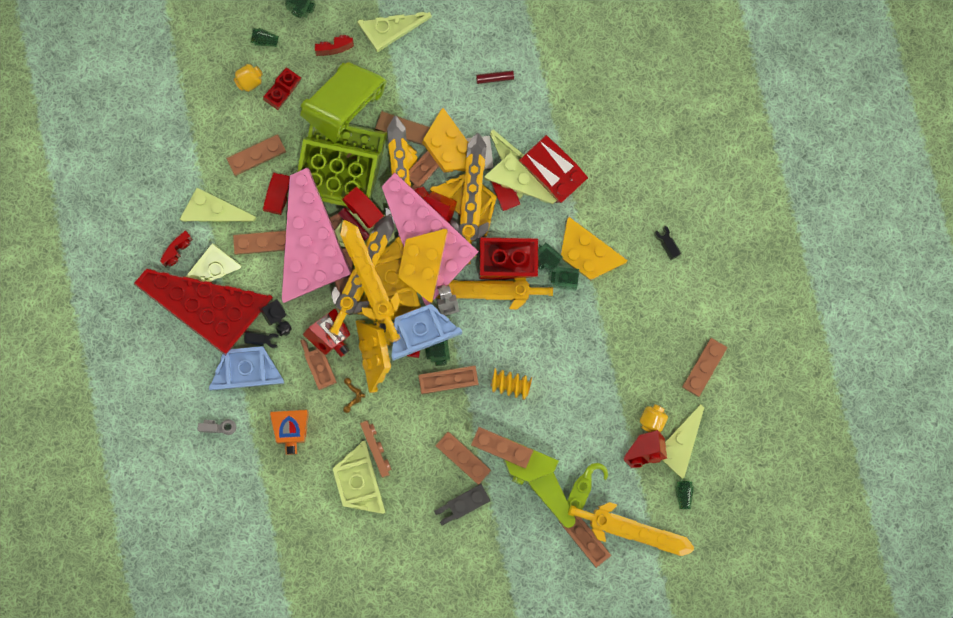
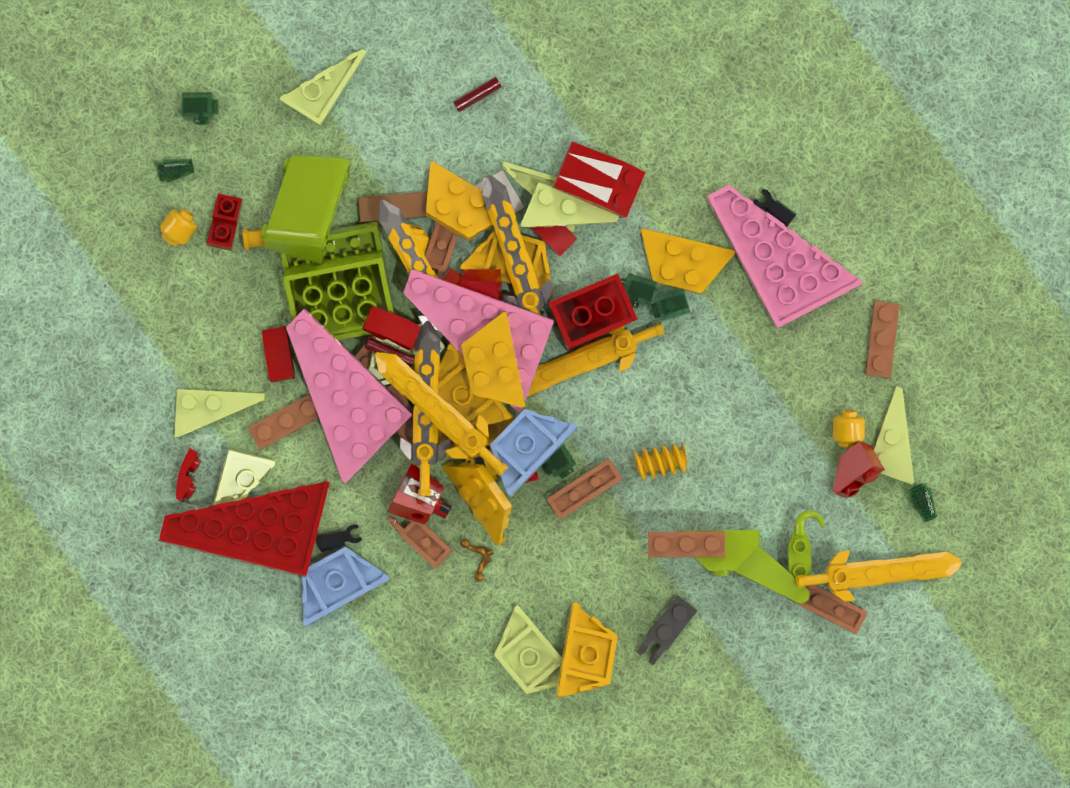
camera: 20 degrees left, 5 degrees up
(210, 427) = (326, 669): light grey plate -> none
(256, 155) = (230, 317): nougat plate -> none
(273, 314) = (340, 501): black plate -> none
(290, 428) = (422, 630): orange torso -> none
(294, 107) = (252, 238): none -> yellow bush
(340, 45) = (272, 136): red slope -> none
(376, 448) = (535, 608): nougat plate -> none
(397, 497) = (586, 654): none -> yellow wing
(448, 302) = (542, 397): light grey plate -> none
(463, 458) = (642, 574): nougat plate -> none
(655, 285) = (780, 264): none -> bright pink wing

